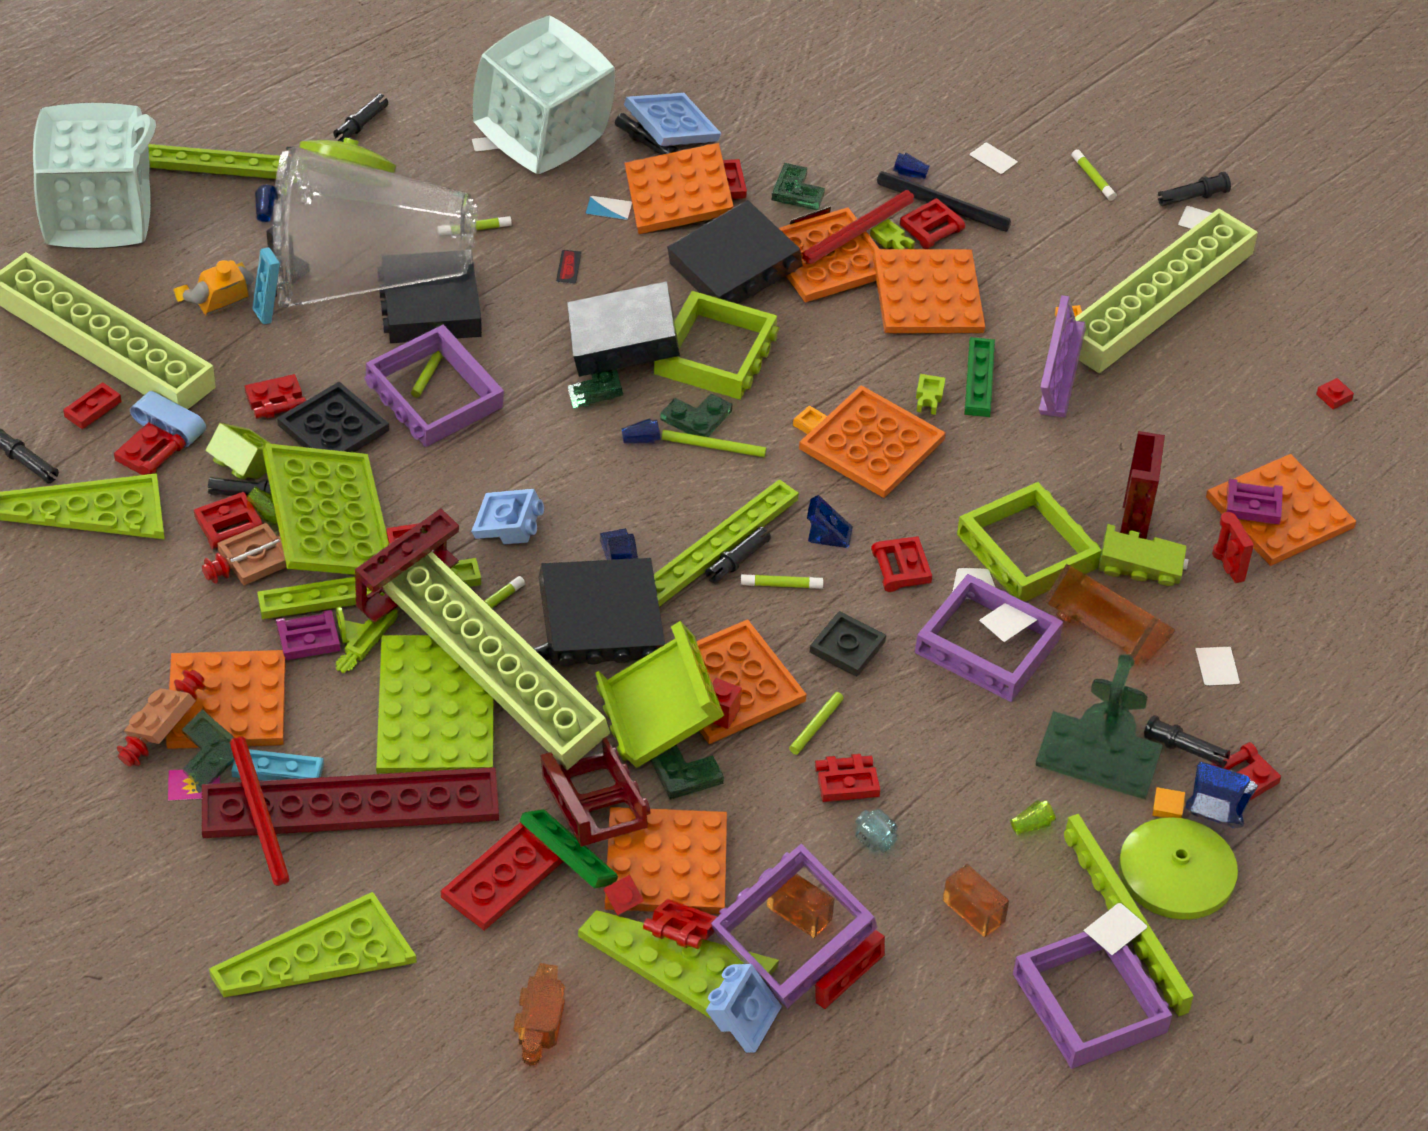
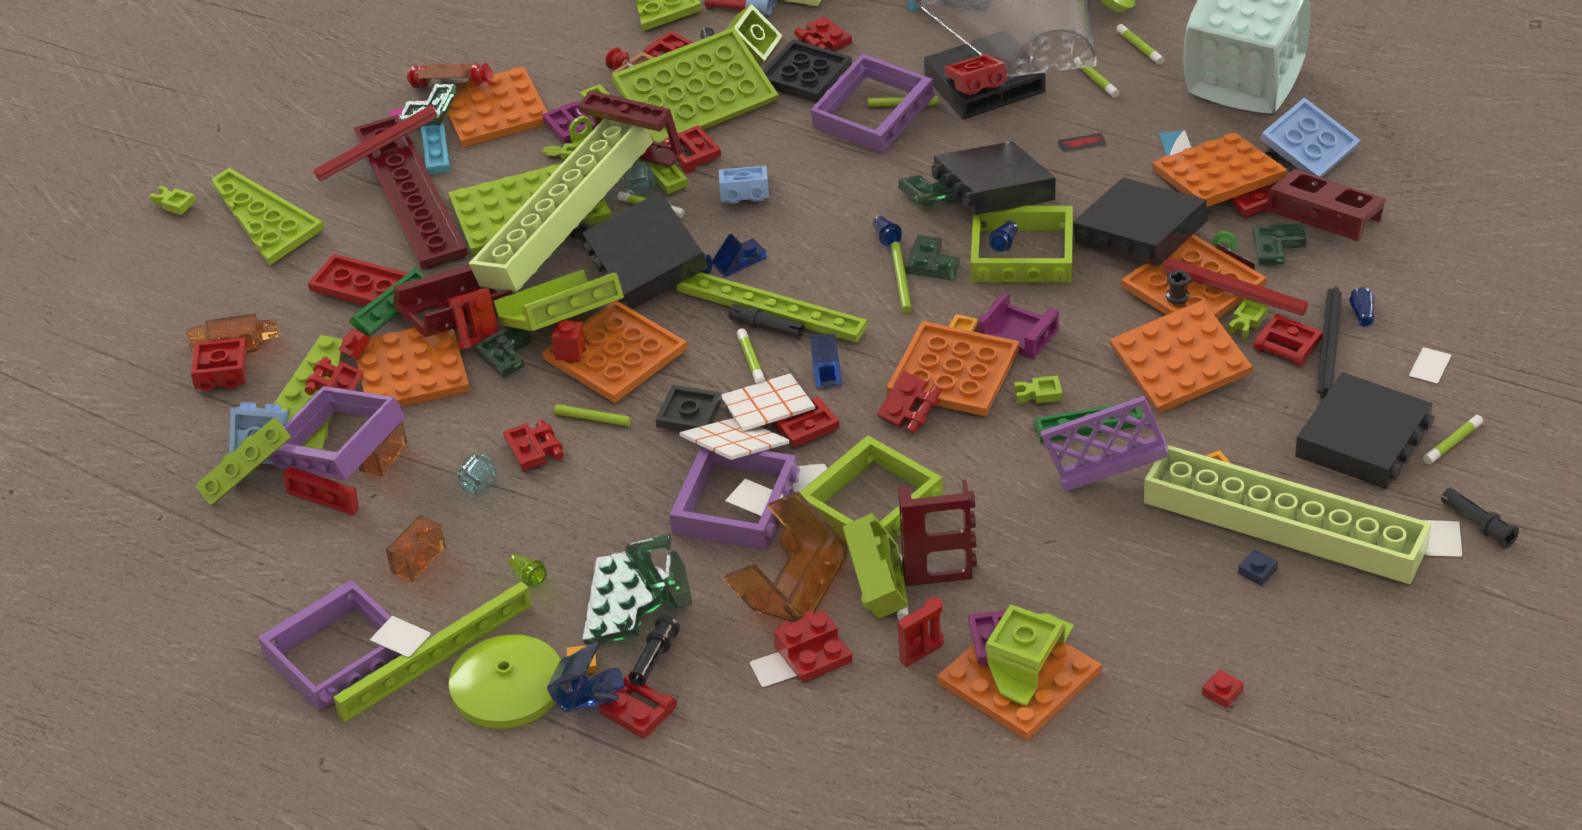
camera: 80 degrees right, 5 degrees down
(236, 1038) = (175, 201): none -> lime plate
(454, 179) = (1140, 44): none -> lime bar
(458, 288) = (977, 73): none -> red plate
(593, 1030) = (219, 363): none -> red plate
(645, 775) = (479, 314): none -> red plate
(726, 344) = (1003, 236): none -> clear blue cone
(773, 139) = (1324, 205): none -> dark red window
(782, 216) = (1225, 236): none -> bright green plate
(789, 1022) = (243, 461): none -> lime bracket
(834, 380) = (1020, 325): none -> magenta panel
(849, 258) = (1177, 289): none -> black bush
(863, 582) = (767, 402): none -> white piece
(909, 485) = (902, 400): none -> red plate
(919, 613) = (731, 441): none -> white piece
(1069, 216) = (1364, 430): none -> black brick
(1203, 331) = (1257, 567): none -> dark blue plate
(1208, 633) = (811, 645): none -> red plate
(1284, 482) = (1020, 649): none -> lime piece

